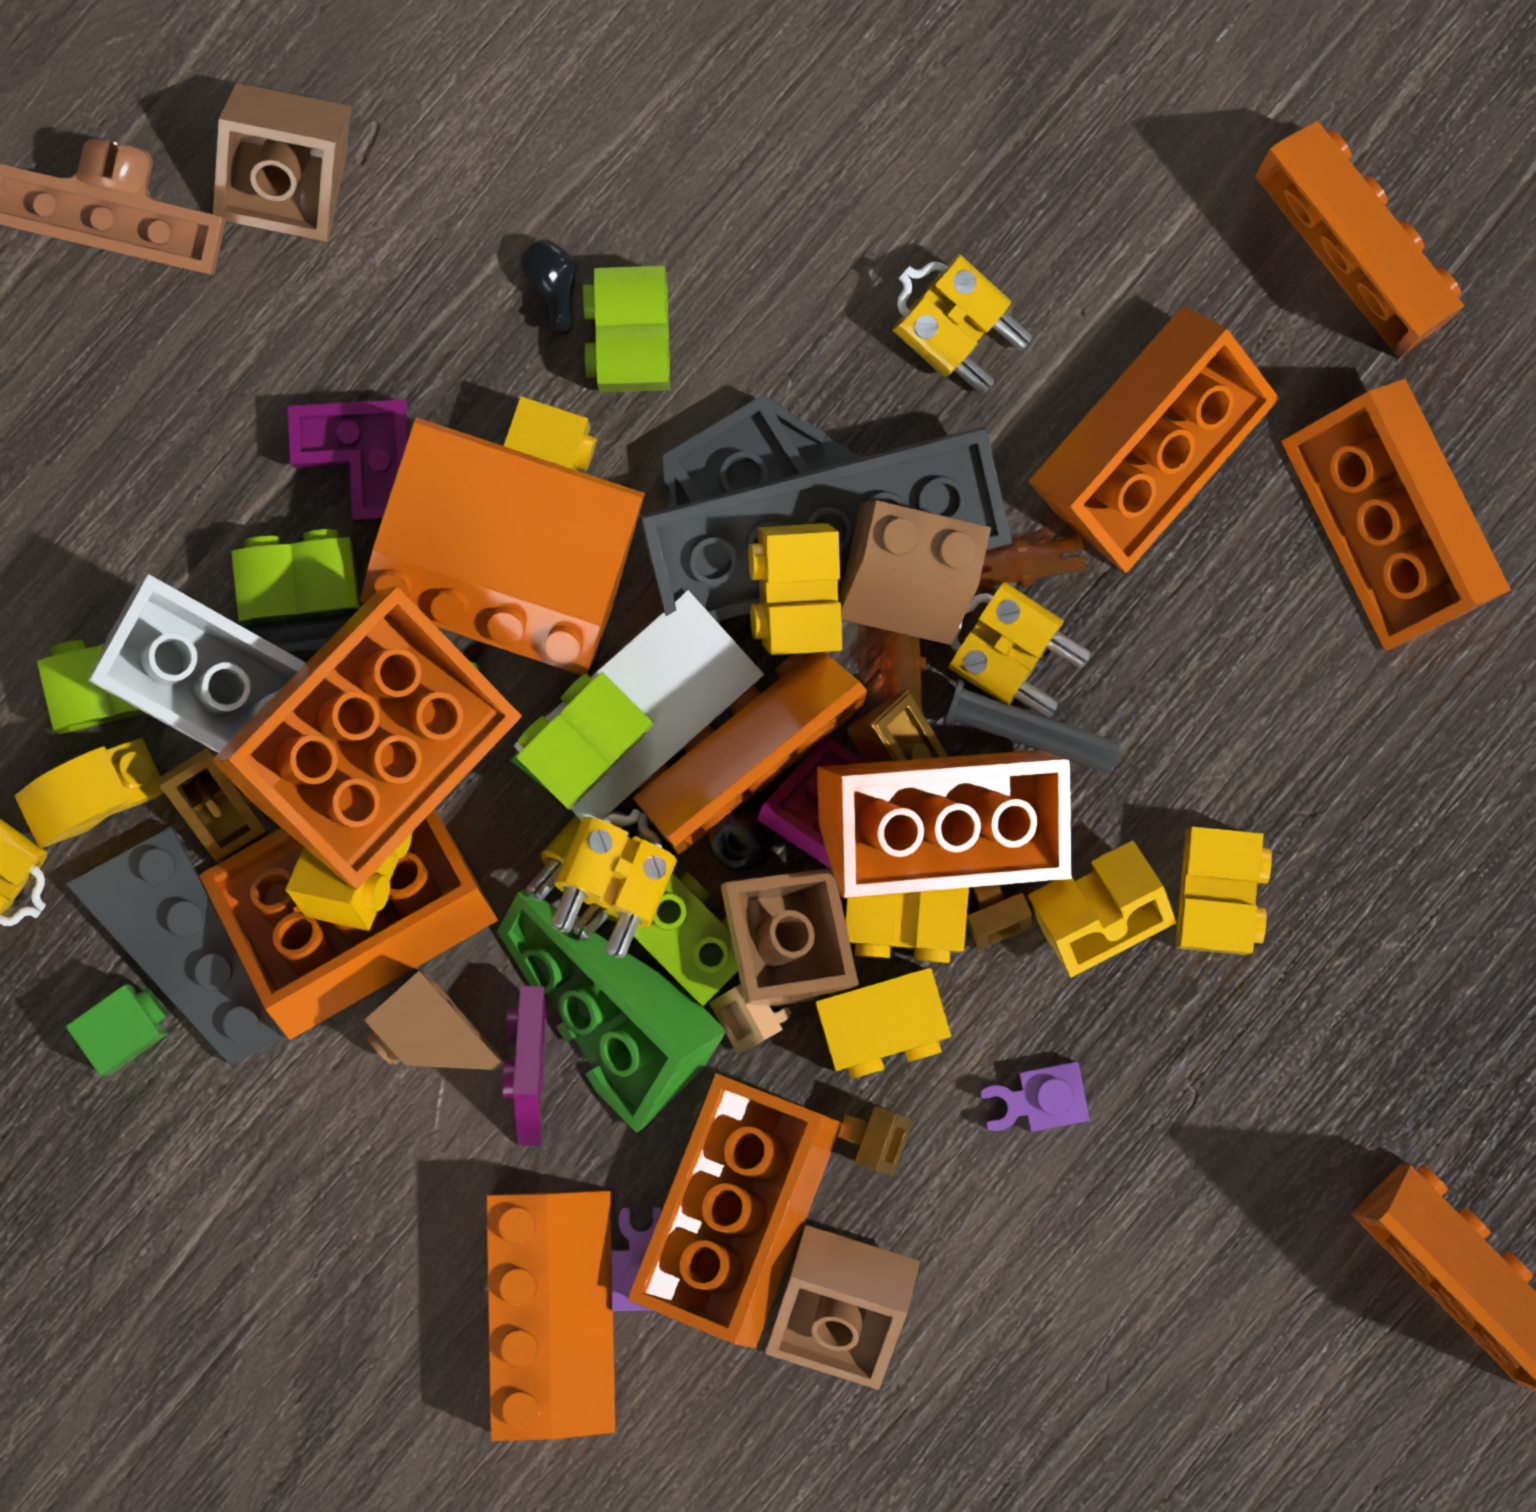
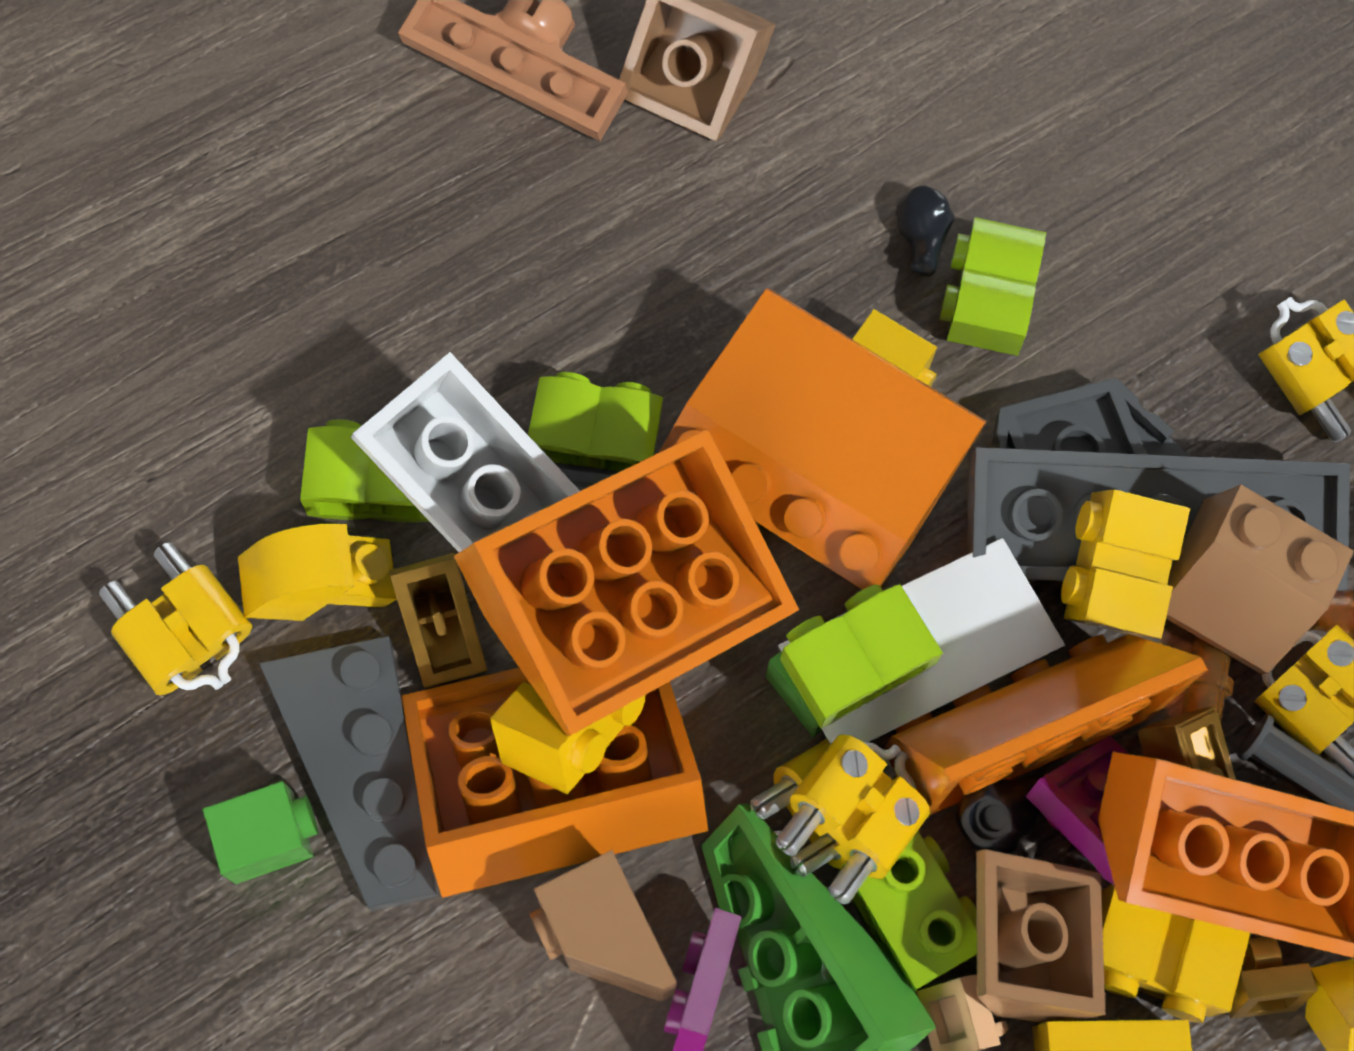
camera: 15 degrees right, 15 degrees down
(356, 434) = (690, 310): magenta plate -> none

